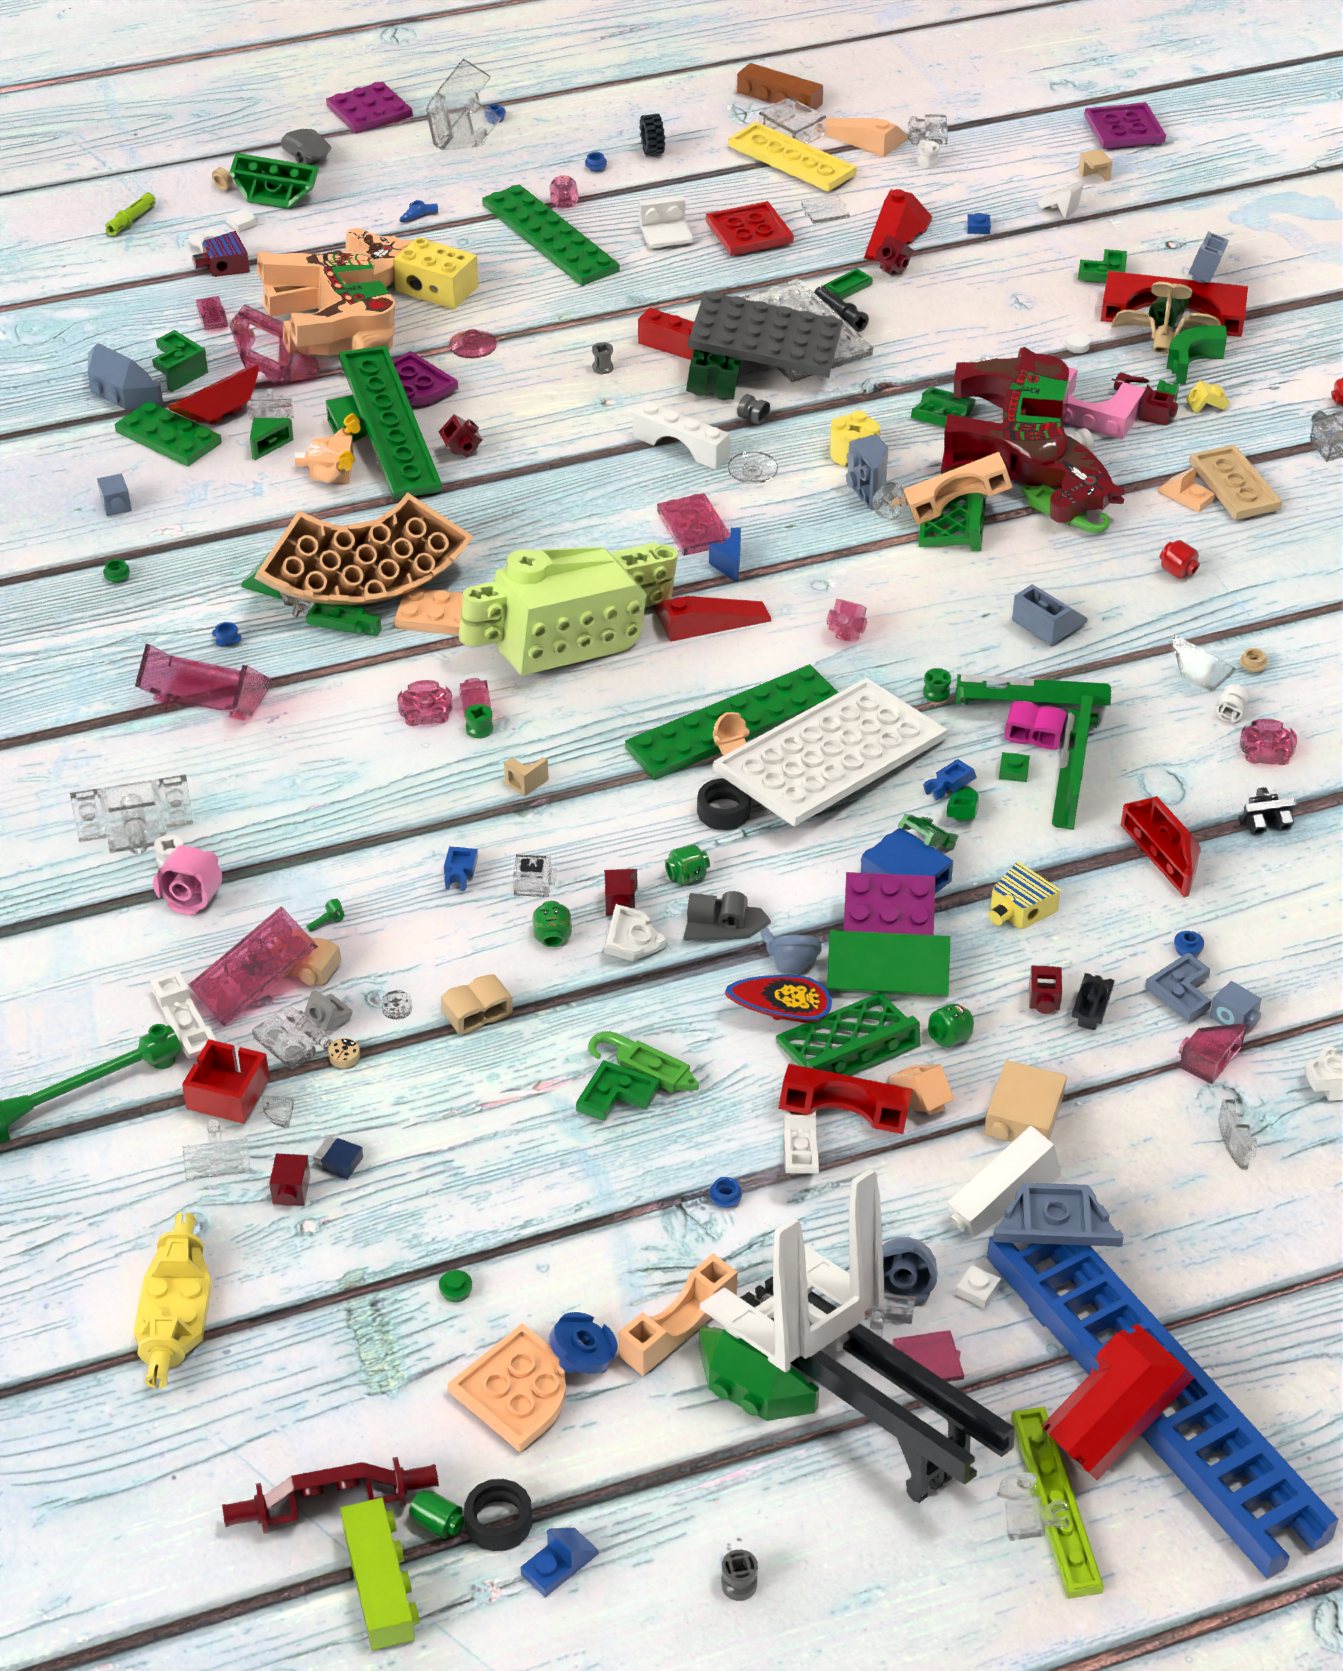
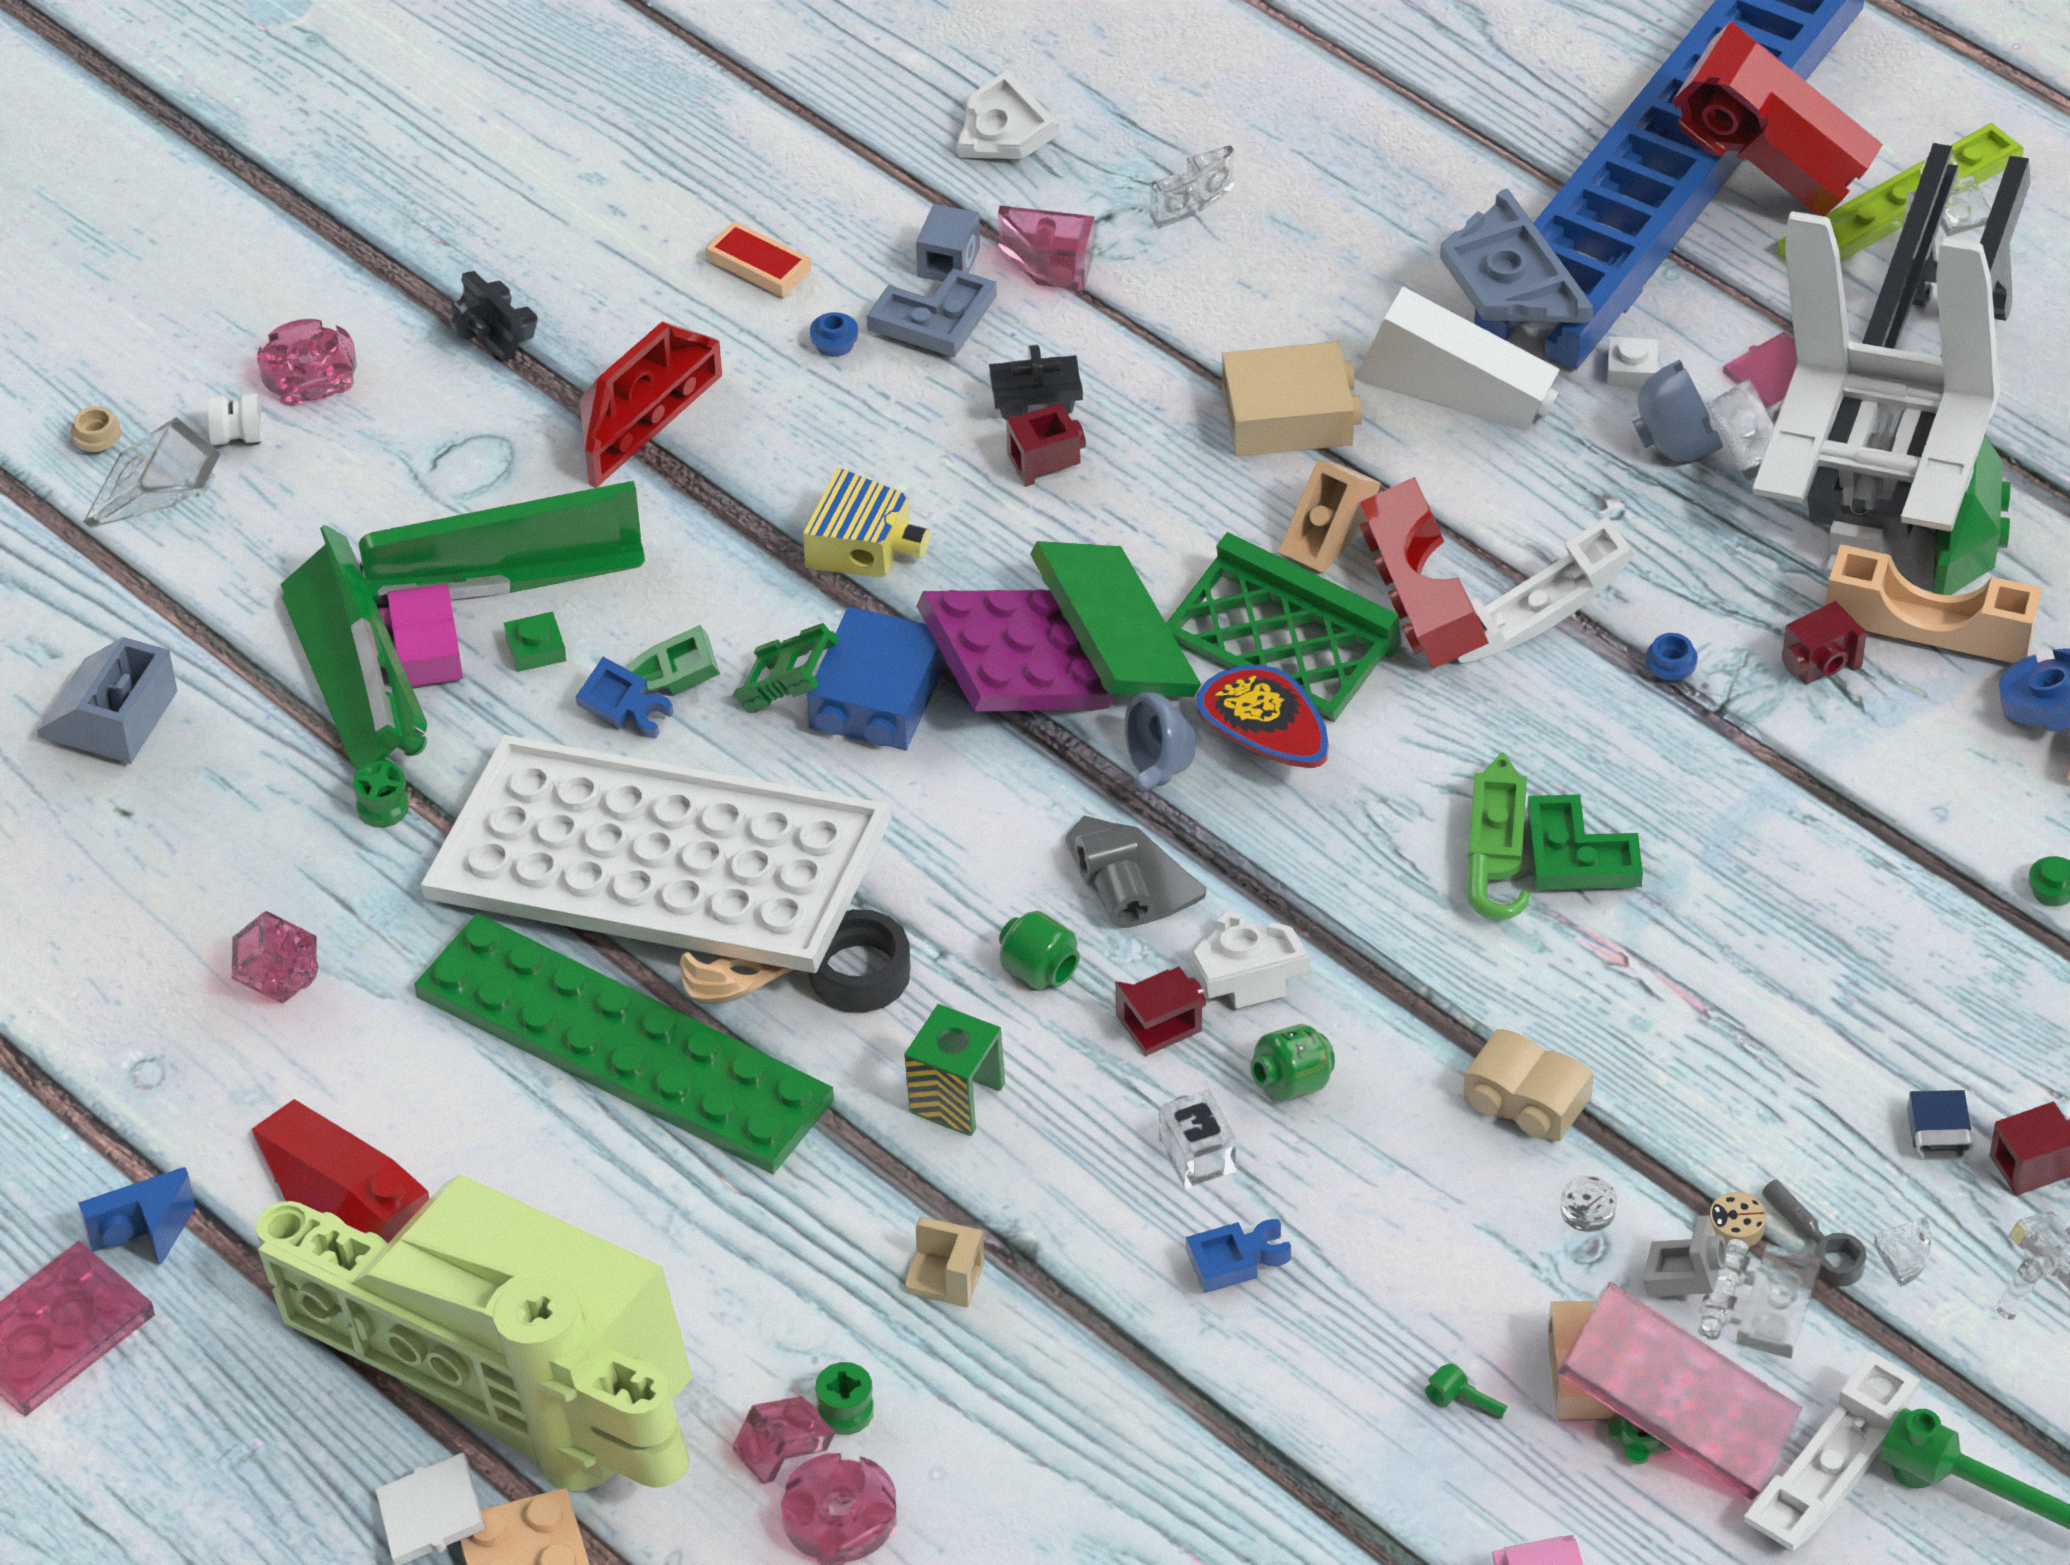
camera: 115 degrees left, 5 degrees up
(218, 1087) = (1931, 1306): red piece -> none
(320, 1078) = (1808, 1226): none -> dark grey piece
(629, 800) = (945, 1062): none -> green piece
(685, 1256) = (1823, 643): none -> dark red brick
(950, 1025) = (1187, 520): green head -> none
(1269, 935) = (758, 259): none -> tile

